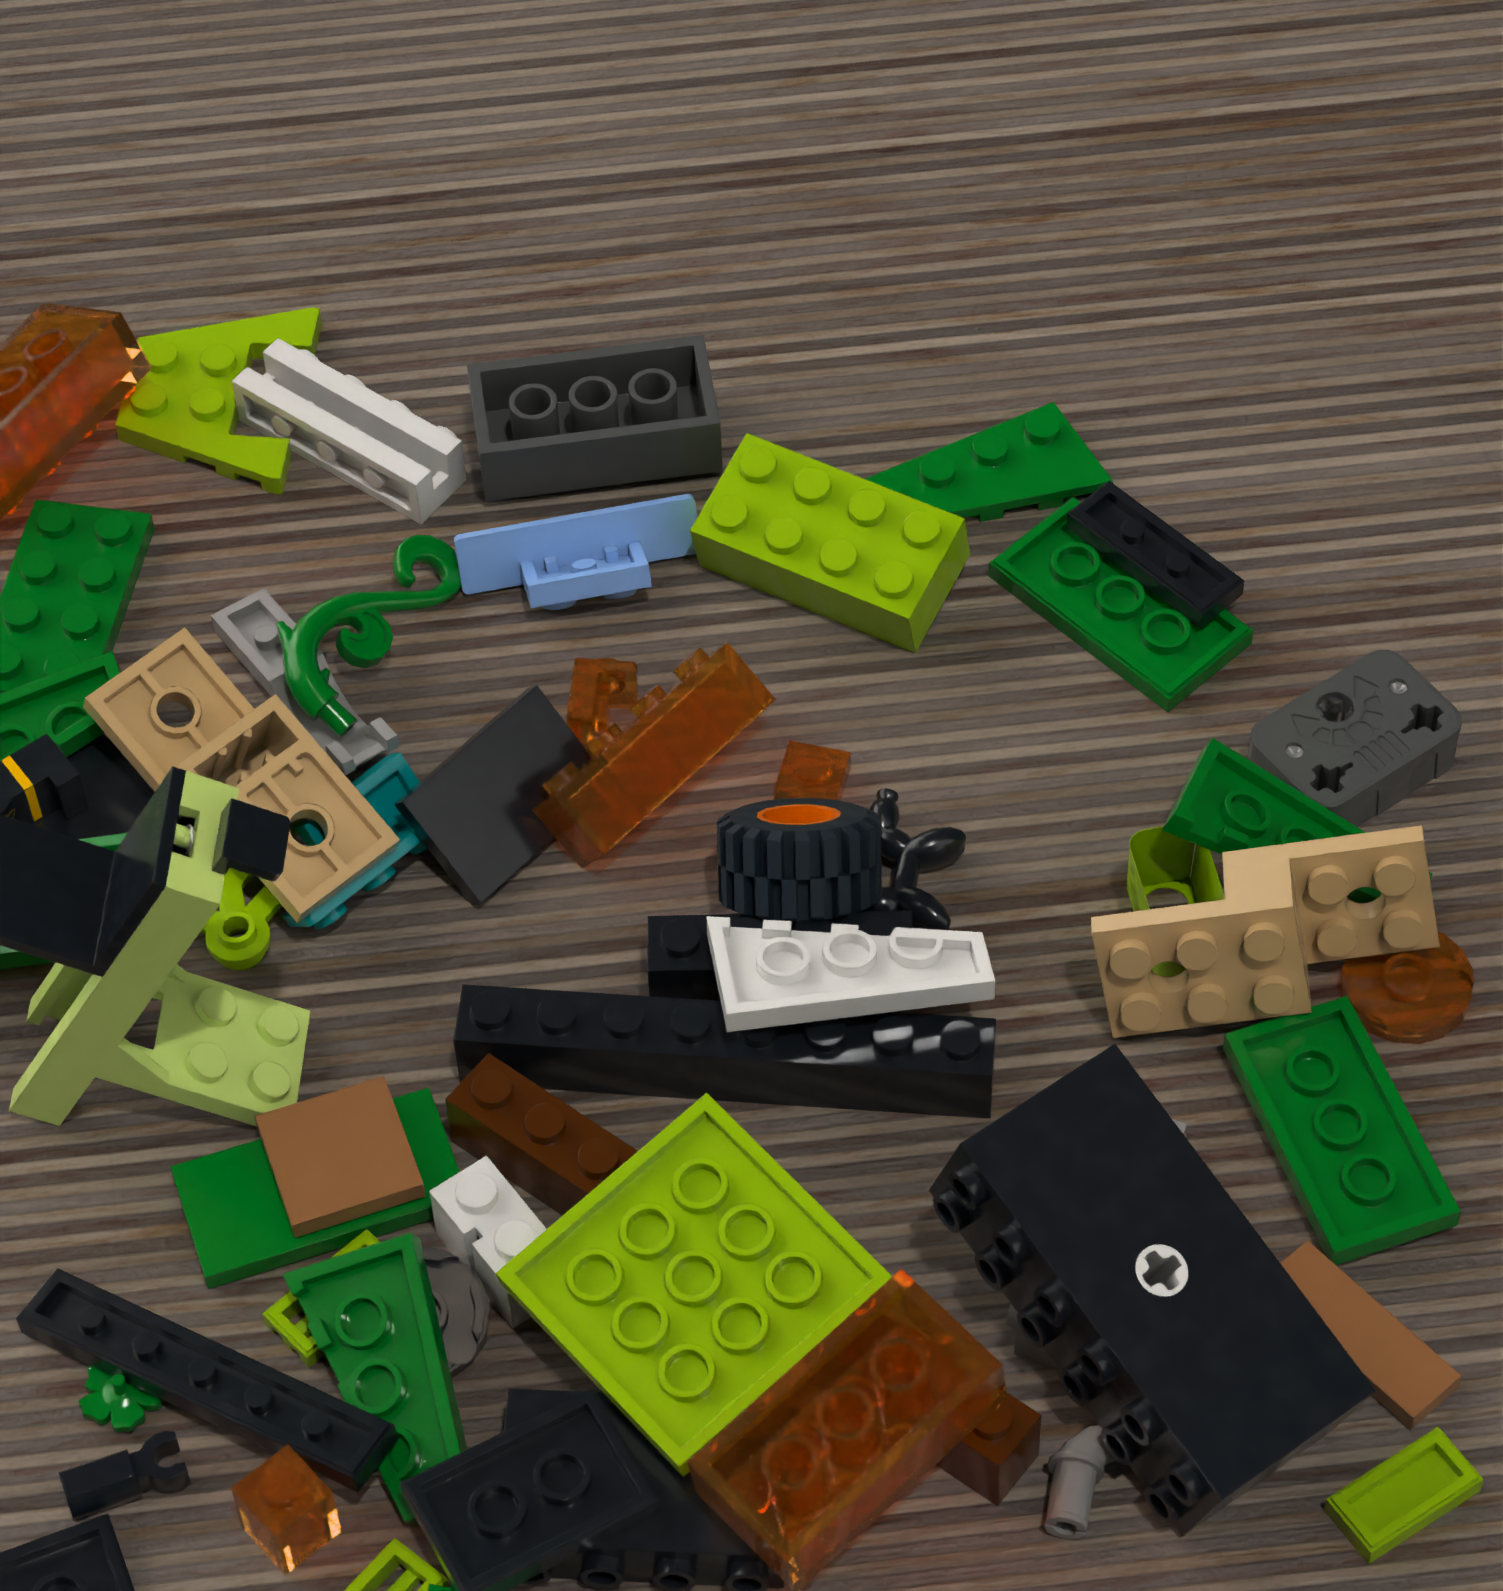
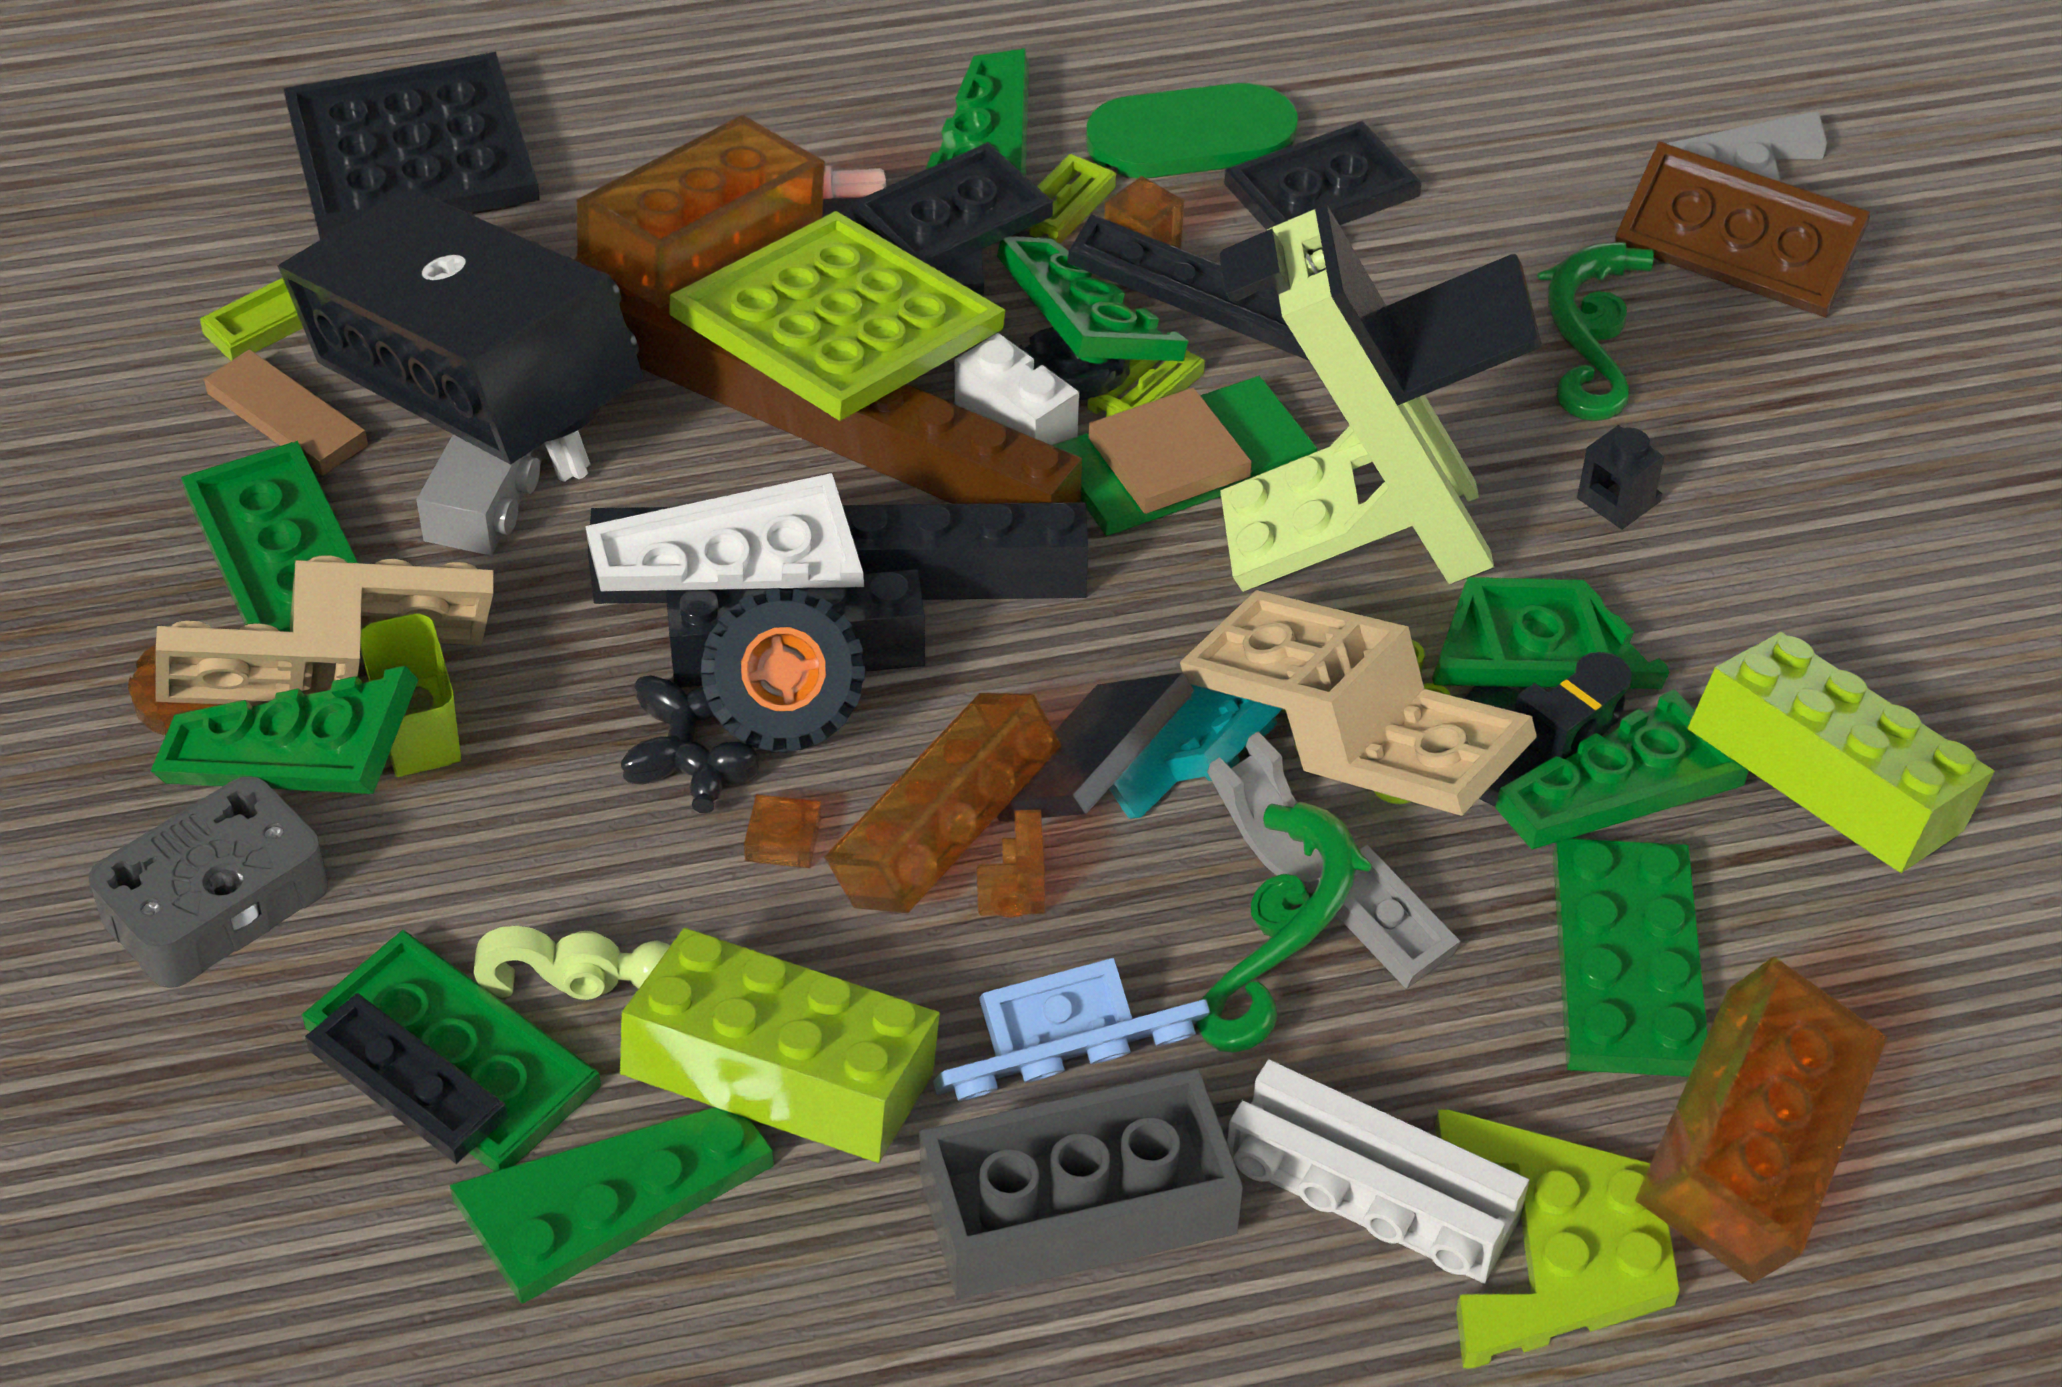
camera: 170 degrees right, 5 degrees down
(1006, 644) = (578, 964): none -> yellowish green piece

